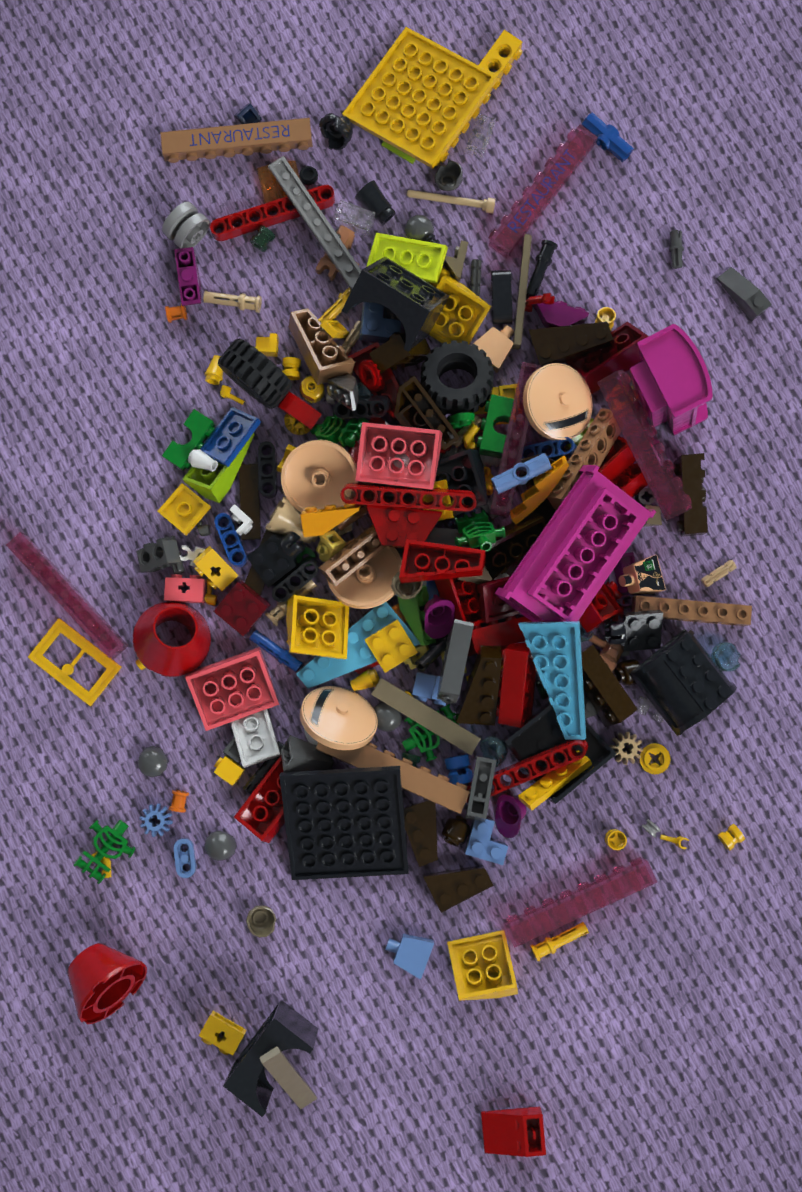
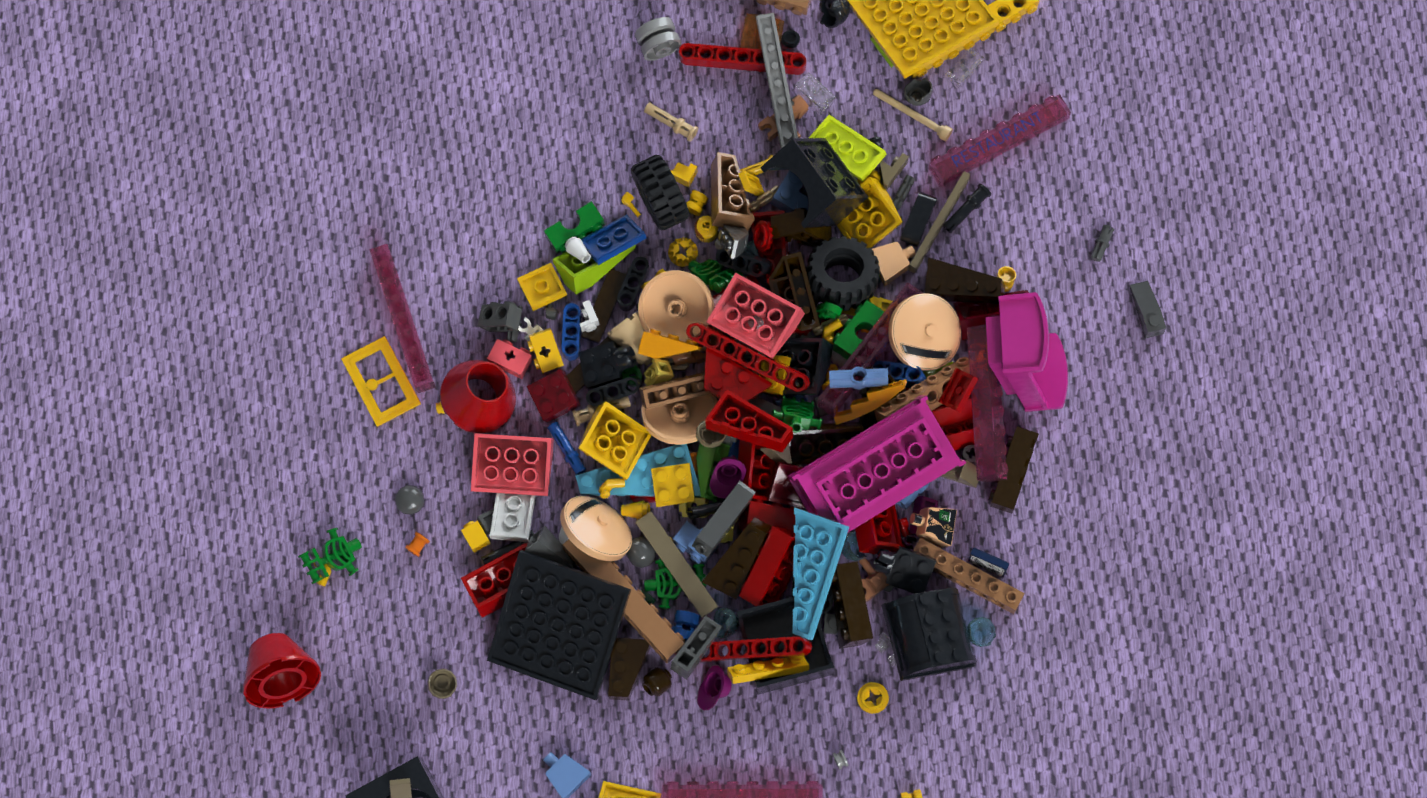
camera: 30 degrees right, 10 degrees down
(161, 815) = (397, 551): medium blue gear -> none
(176, 313) = (614, 111): orange bush -> none
(184, 857) = (399, 598): medium blue plate -> none
(188, 276) = (640, 83): magenta slope -> none
(210, 598) = (528, 376): yellow hand -> none
(214, 373) = (624, 177): yellow cone -> none
(220, 845) = (436, 601): dark grey hair -> none
(231, 1038) = (355, 759): yellow brick -> none
(263, 238) = (721, 78): clear green wheel -> none
(299, 410) = (686, 242): red slope -> none
(329, 675) = (609, 484): none -> yellow arm
(375, 201) = (840, 86): black plant -> none
(419, 227) = (870, 126): dark grey hair -> none
(457, 885) = (635, 731): dark brown wedge -> none
(480, 844) = (674, 703): medium blue brick -> none
(545, 299) = (954, 235): red arm -> none
(560, 314) = (965, 255): magenta slope -> none
(608, 137) = (1082, 116): blue piece -> none
(614, 444) = (958, 390): none -> red plate
(618, 841) = (802, 751): yellow wheel -> none
(623, 669) = (876, 608): dark brown head -> none
(632, 750) = (844, 671): tan gear -> none
(677, 841) = (857, 781): yellow hand -> none
(707, 590) = (988, 562): none -> tile
(718, 573) = (1012, 554): tan axle -> none

